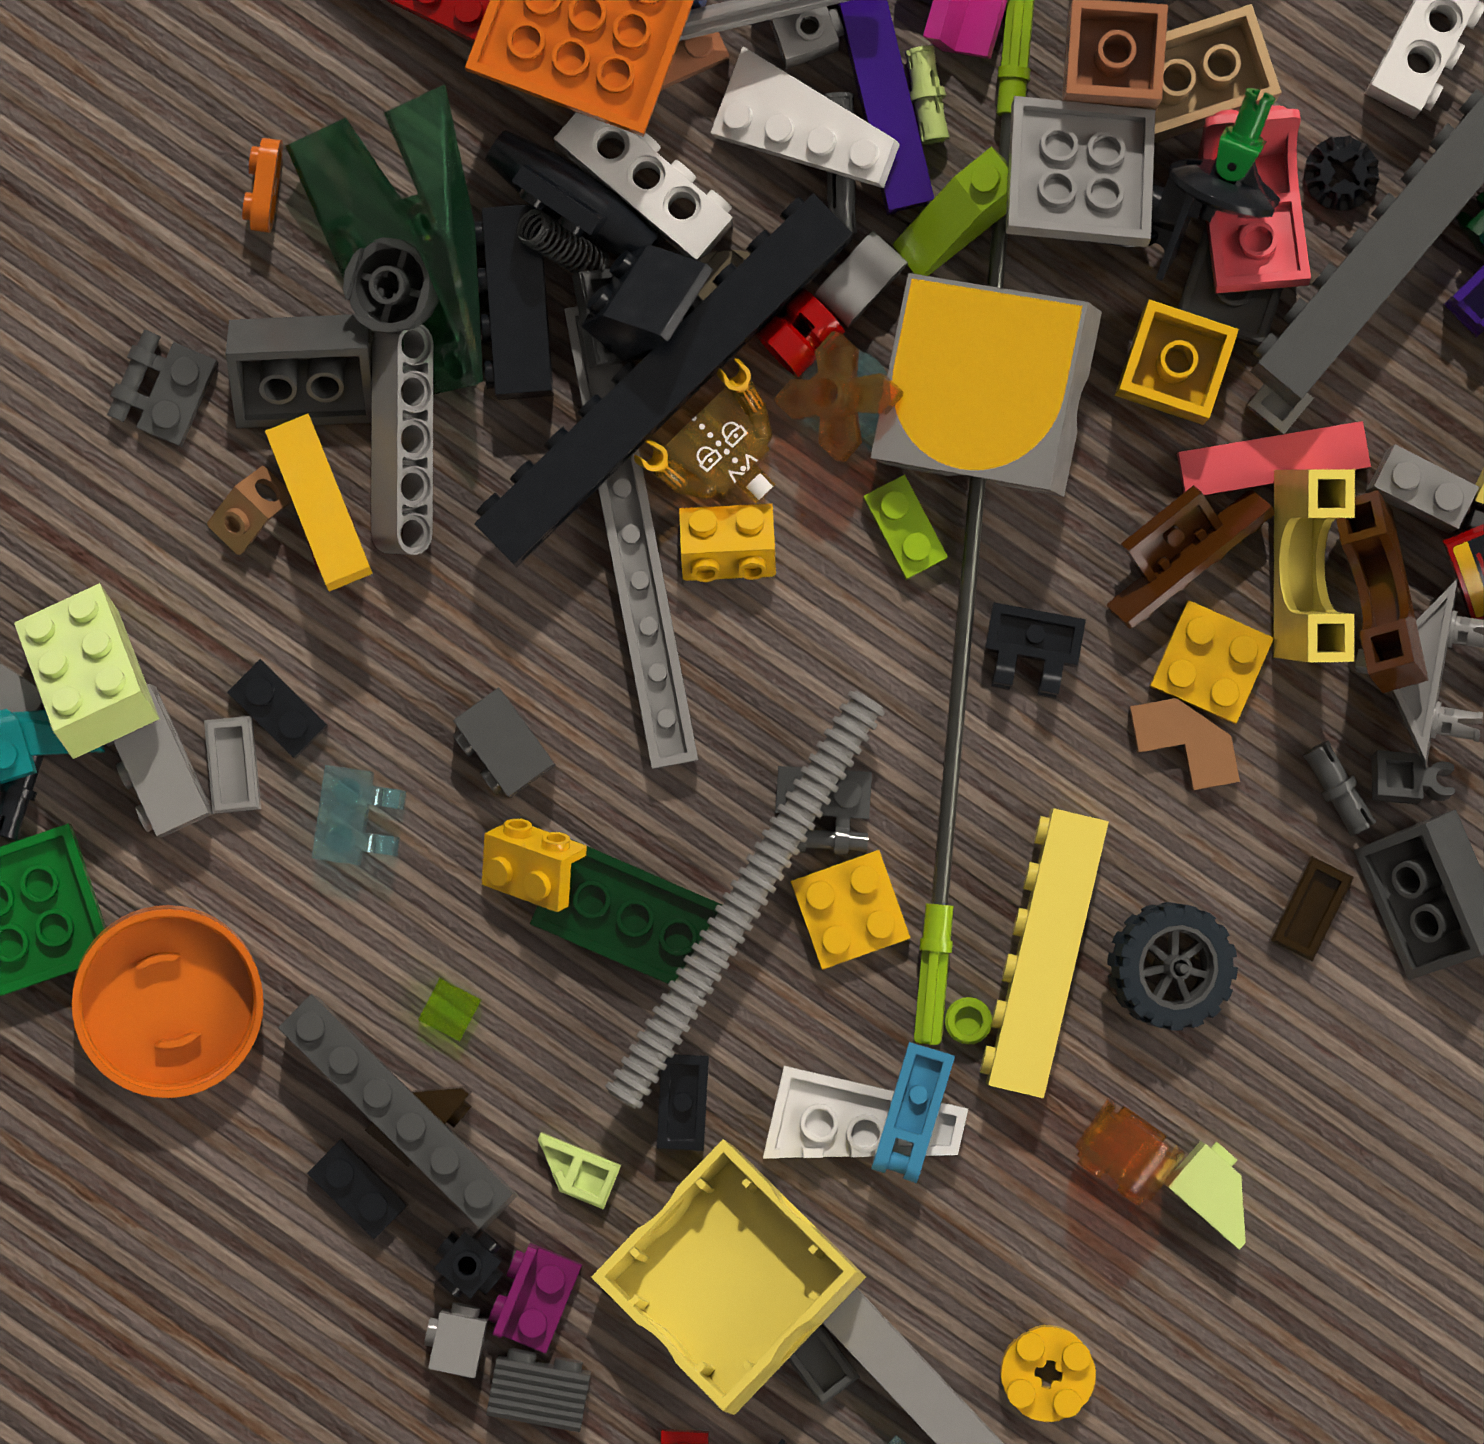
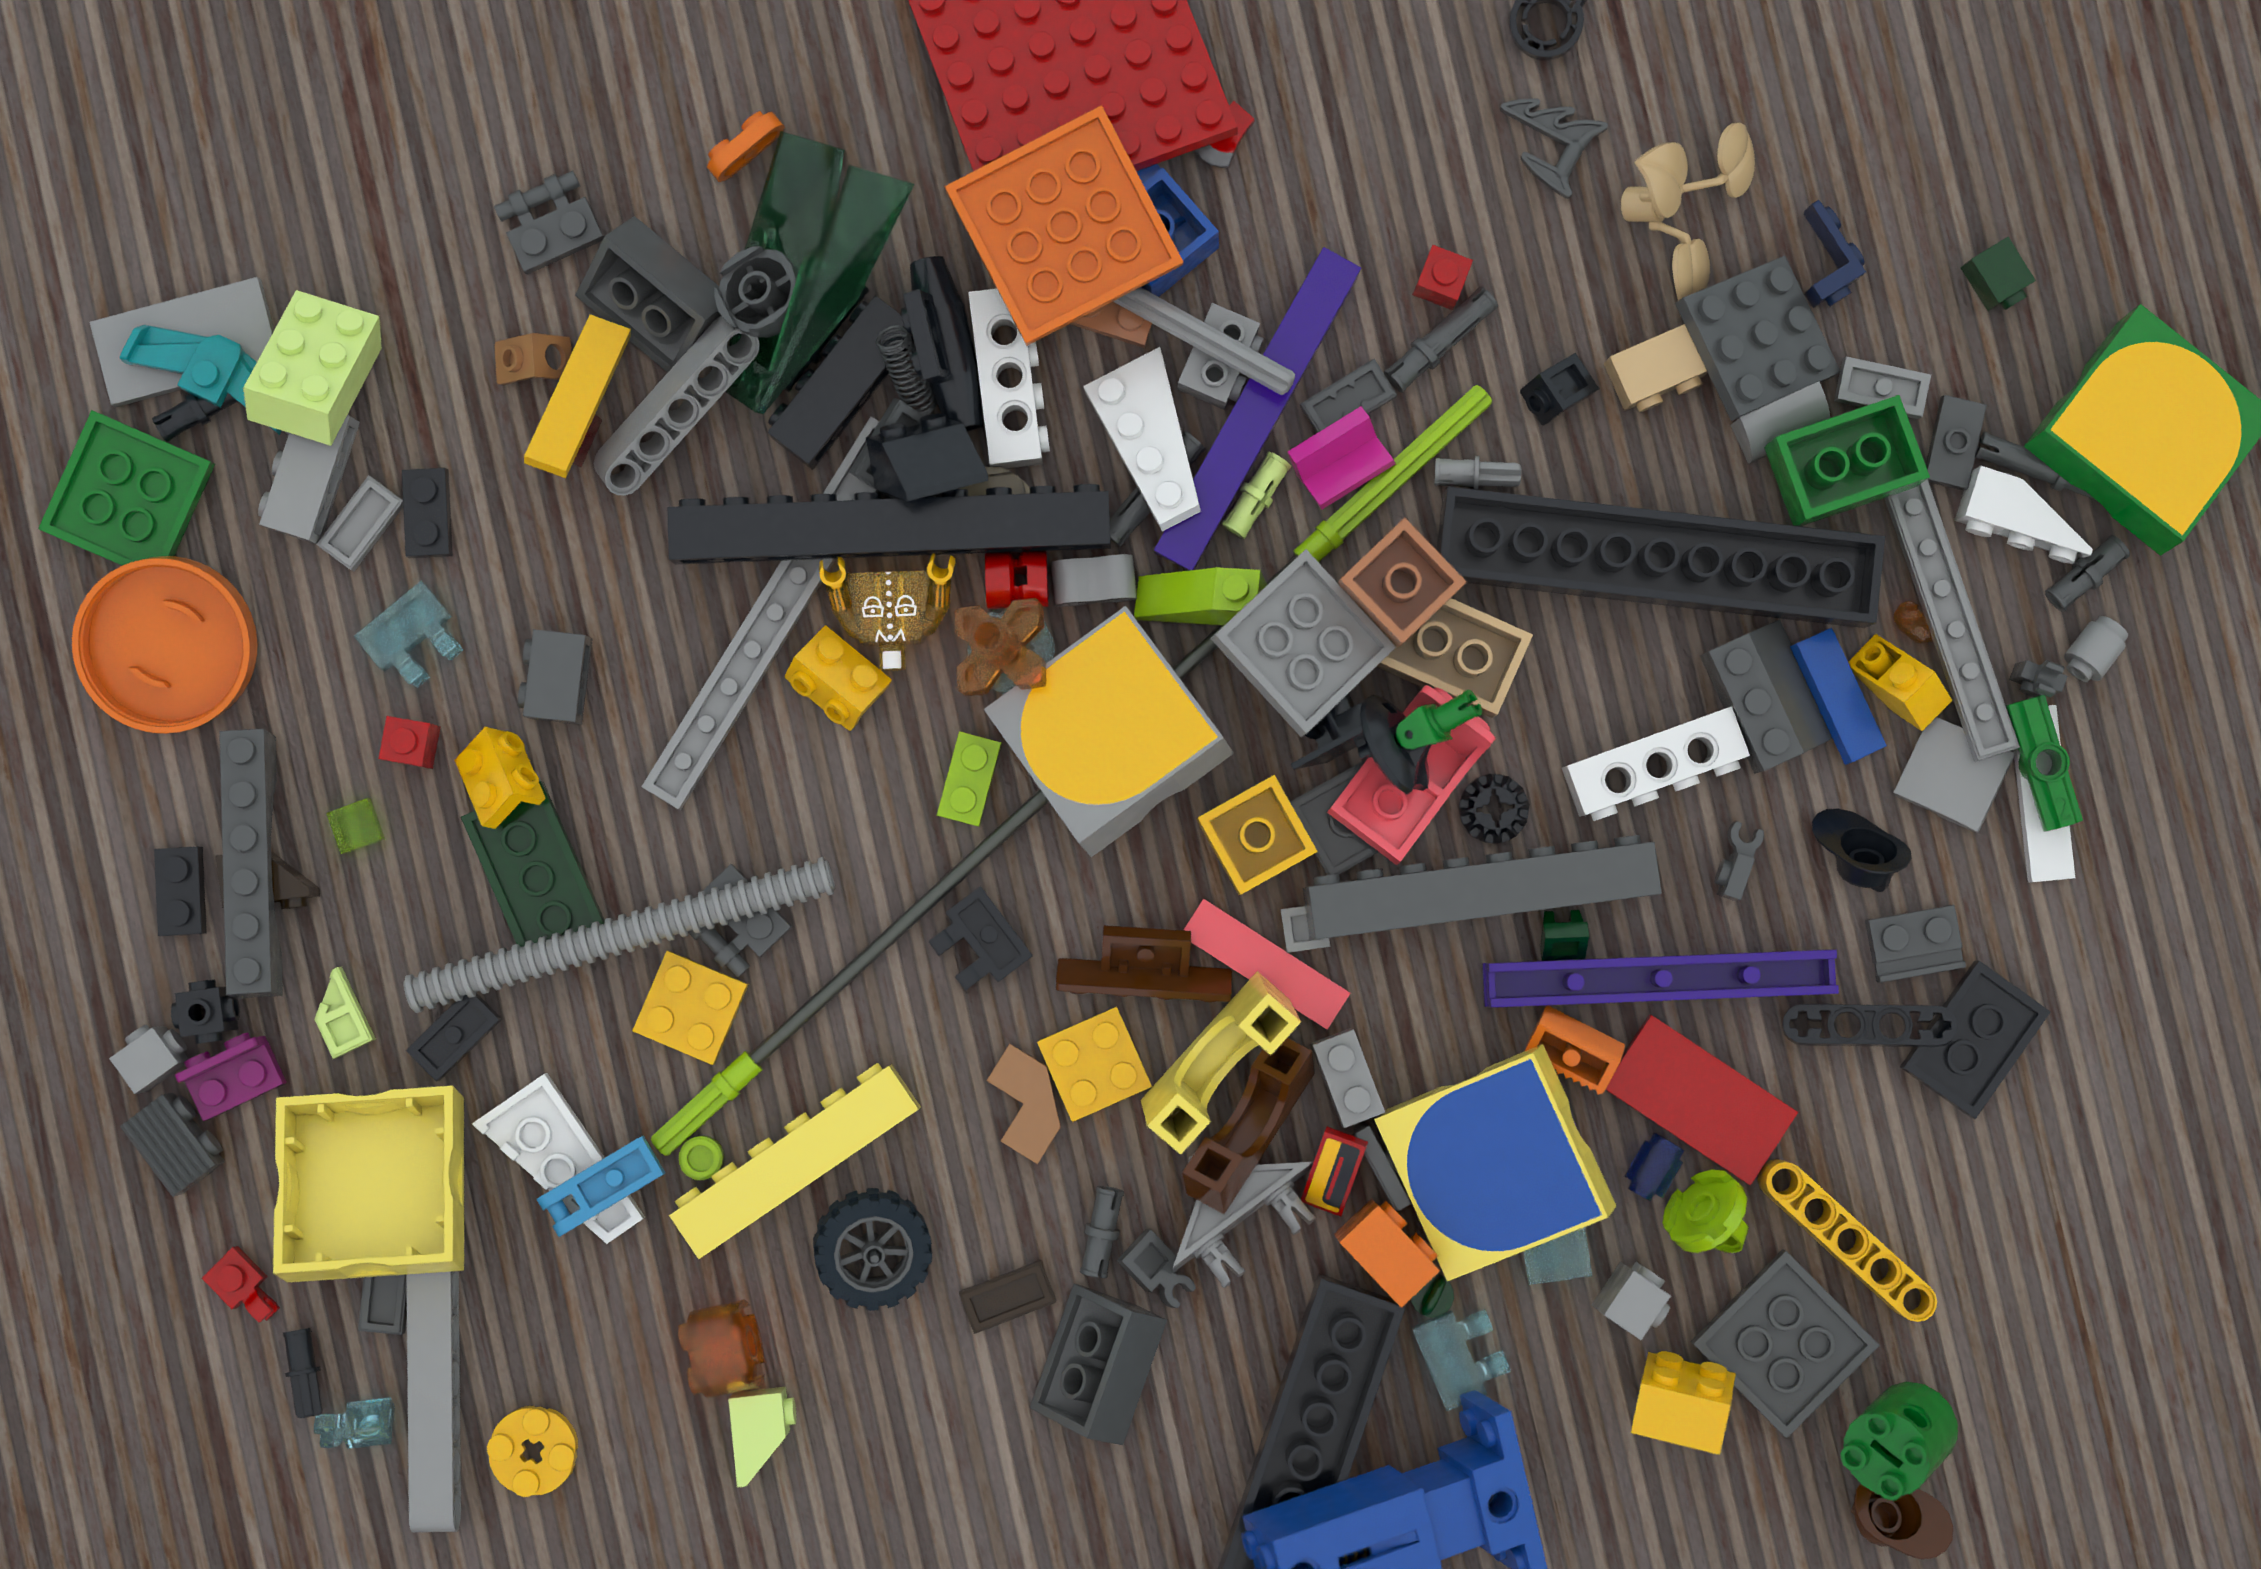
camera: 40 degrees right, 0 degrees up
(434, 901) = (409, 742): none -> red brick

